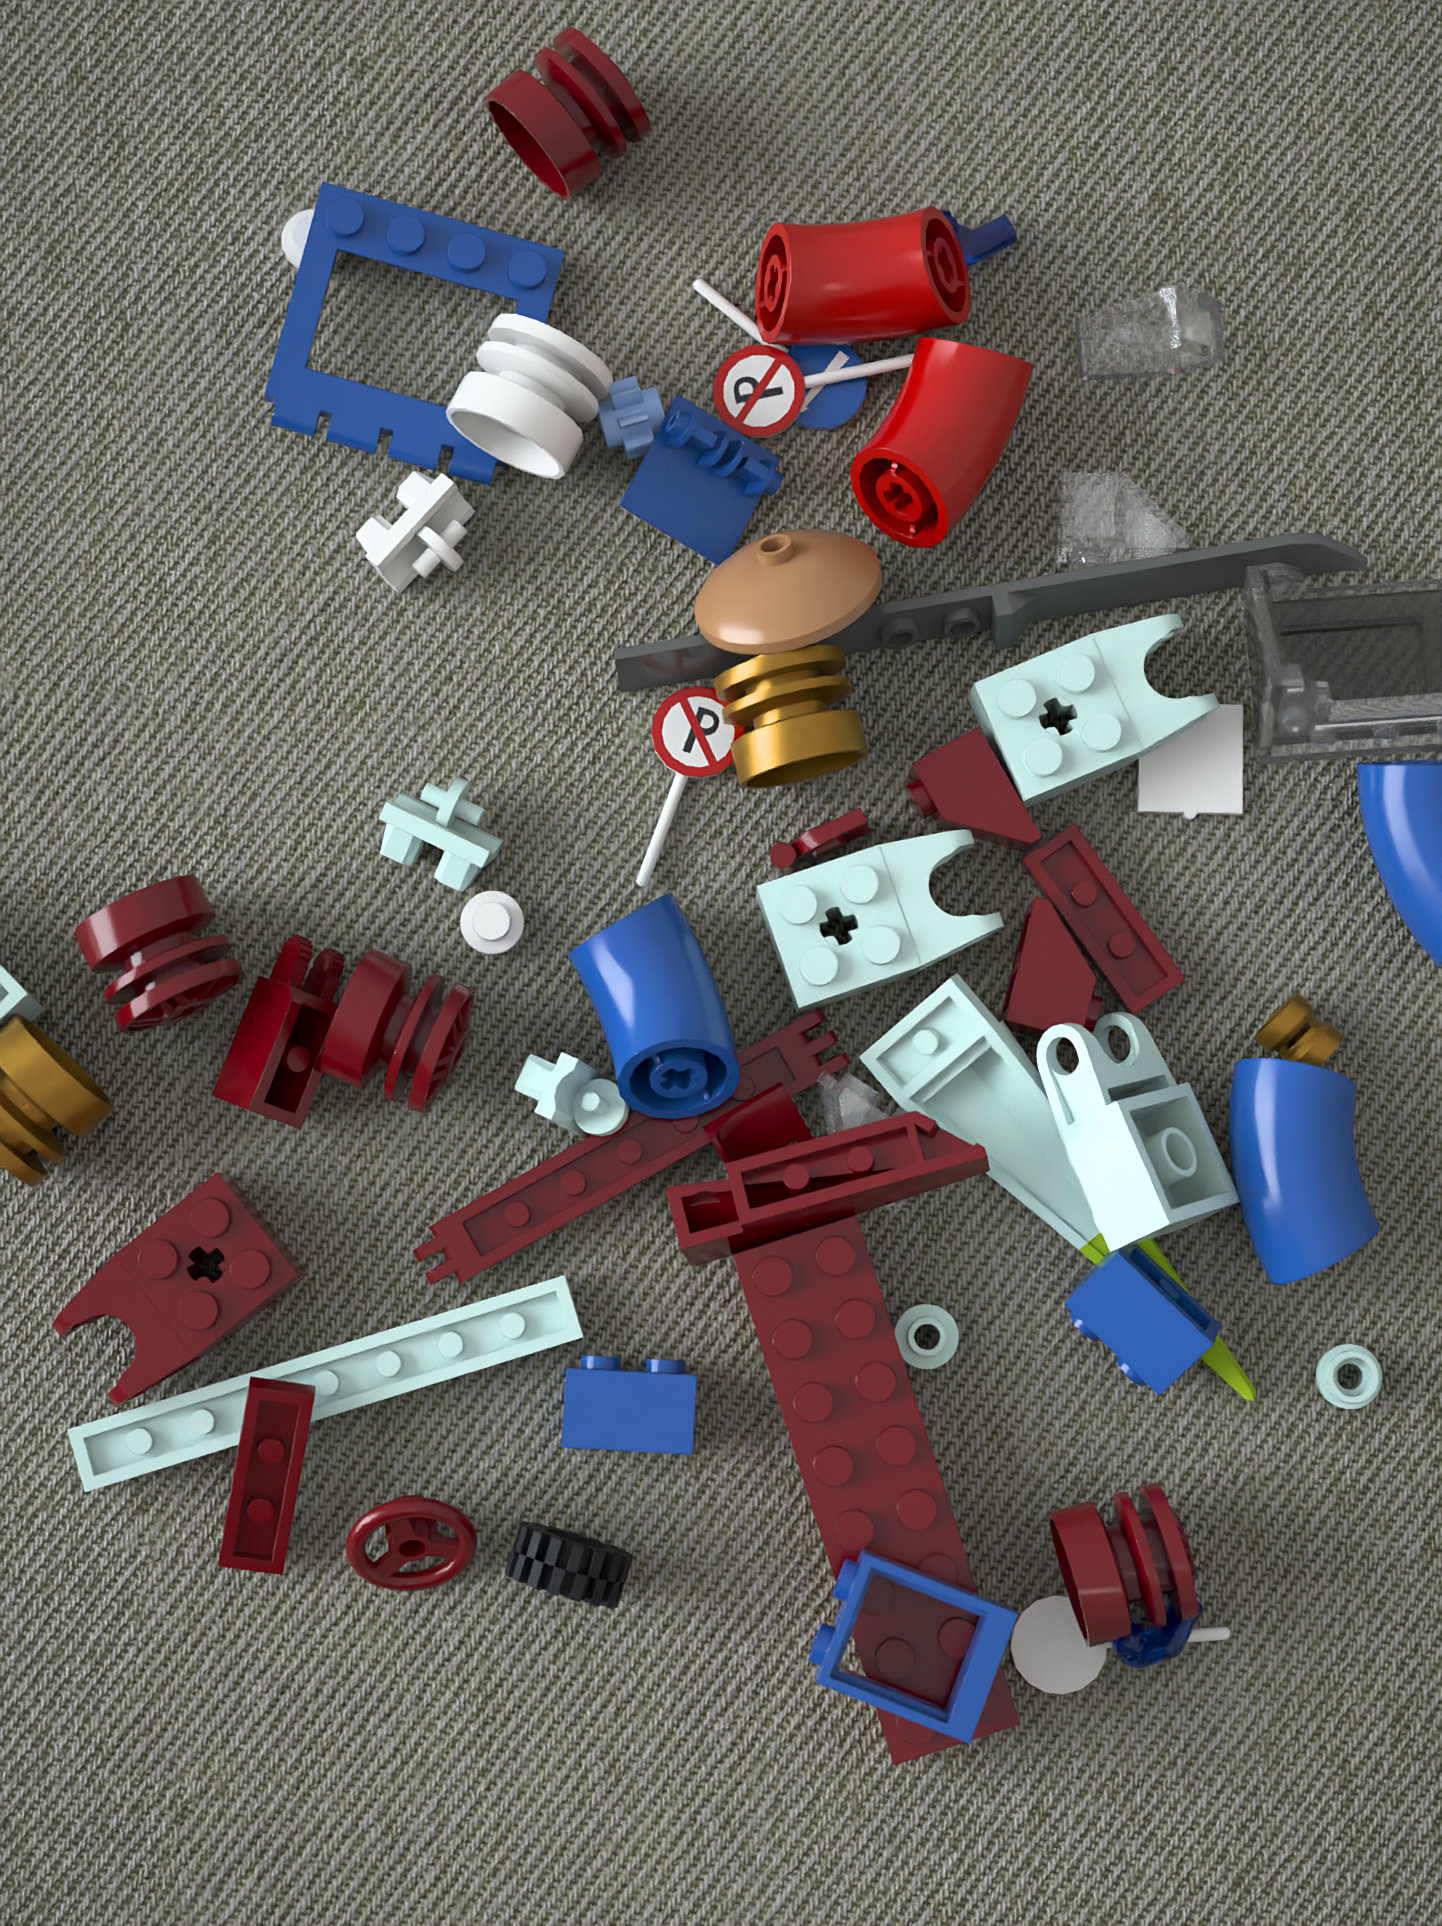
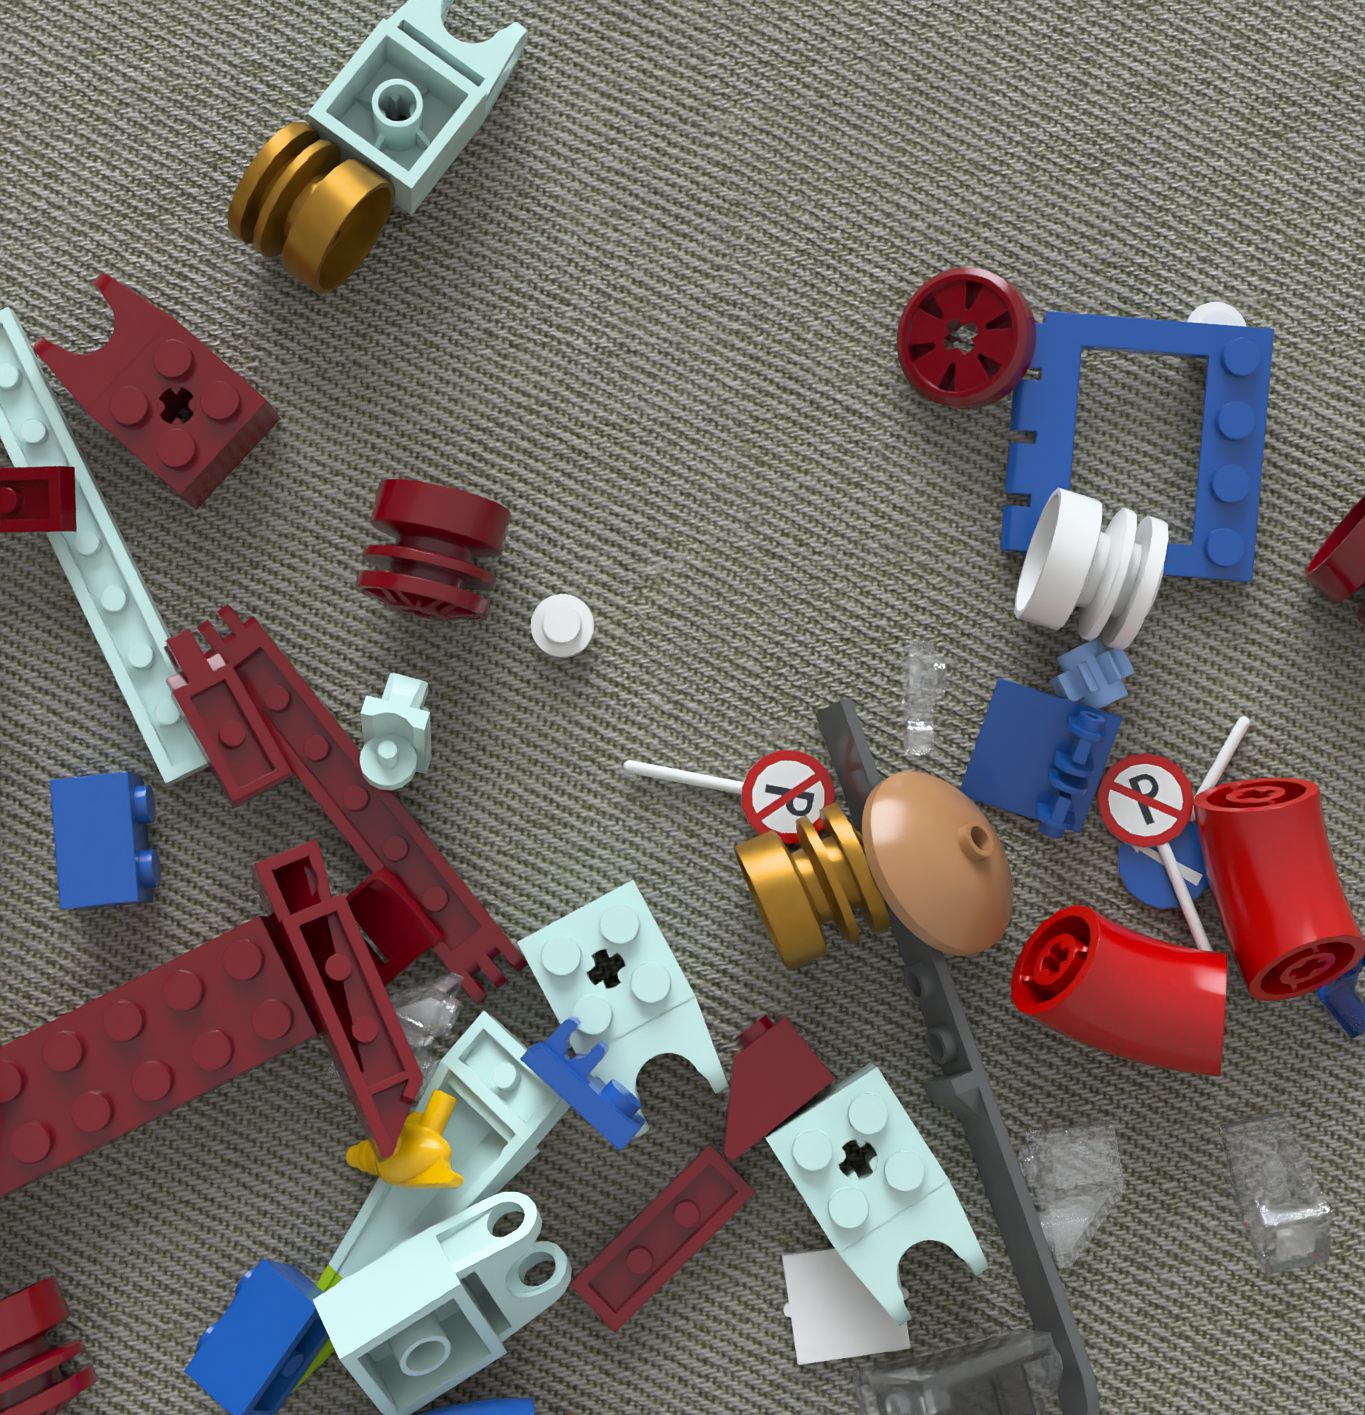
camera: 75 degrees right, 0 degrees up
(163, 963) = (473, 308): dark red wheel -> none
(242, 460) = (1001, 348): none -> dark red wheel
(283, 1036) = (411, 438): dark red hinge -> none
(415, 822) = (649, 563): light aqua hips -> none
(421, 534) = (937, 490): white hips -> none
(531, 1266) = (224, 722): none -> dark red hinge
(609, 583) = (921, 681): none -> clear plate
(660, 1012) = (491, 804): blue brick -> none
(819, 841) = (691, 934): dark red piece -> none
(947, 1330) = (237, 1119): light aqua plate -> none
(971, 940) = (605, 1106): none -> blue plate
(992, 1126) = (420, 1153): none -> yellow piece
(1048, 978) = (591, 1191): dark red slope -> none

